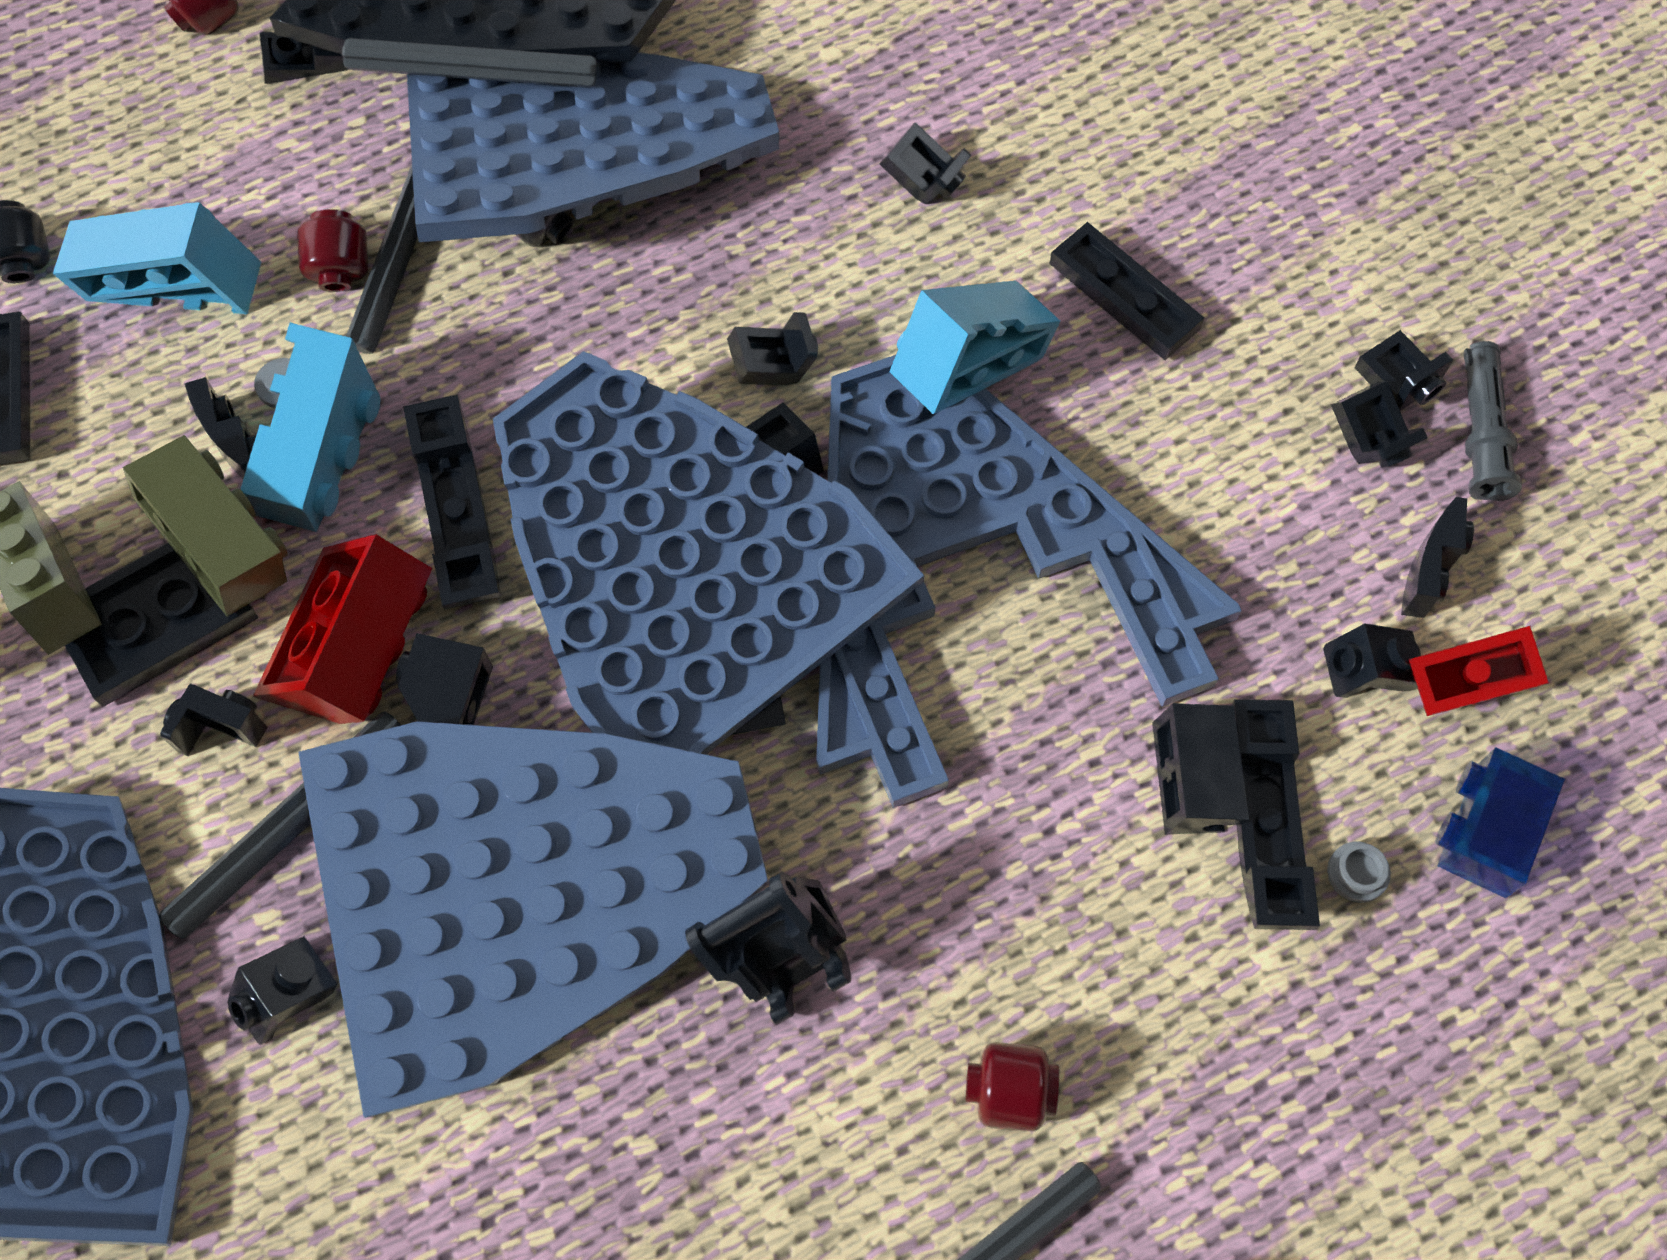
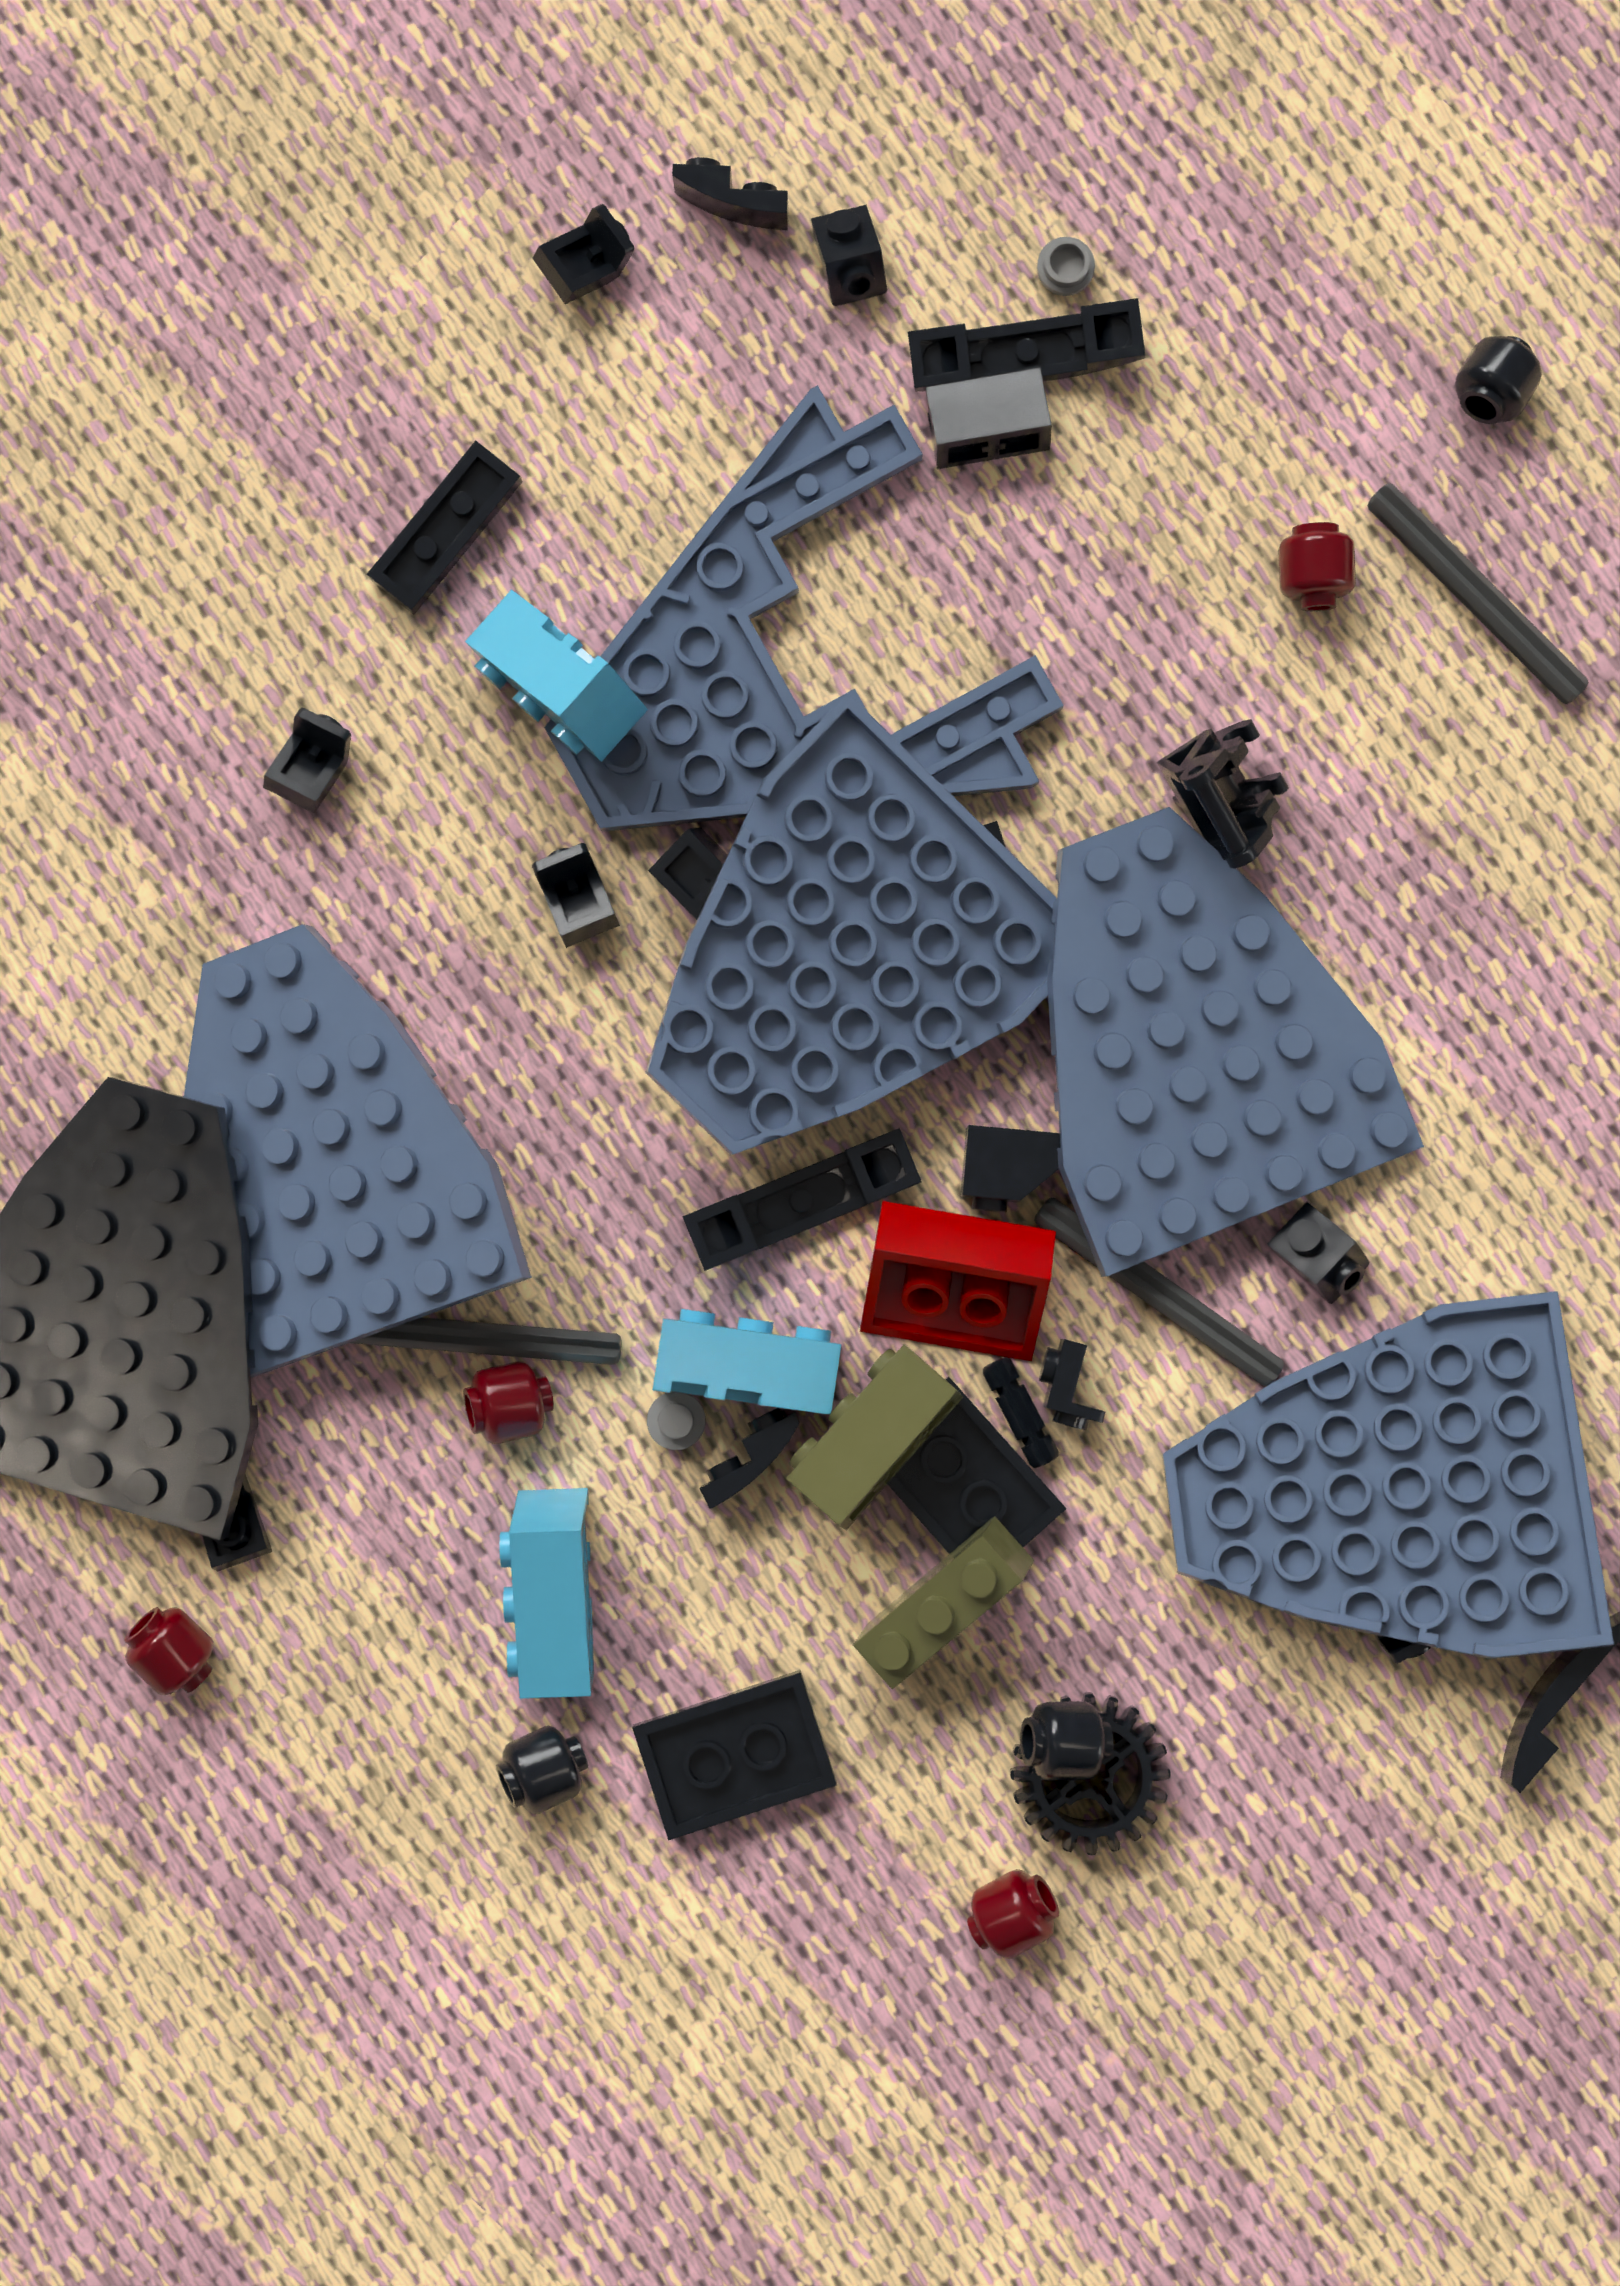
camera: 90 degrees left, 20 degrees up
(209, 673) = (1020, 1412): none -> black axle
(470, 62) = (260, 1287): dark grey axle -> none
(1406, 370) = (513, 229): black bracket -> none
(1478, 671) = (858, 153): red slope -> none
(1490, 441) = (583, 140): dark grey pin -> none
(1498, 822) = (1004, 136): clear blue brick -> none

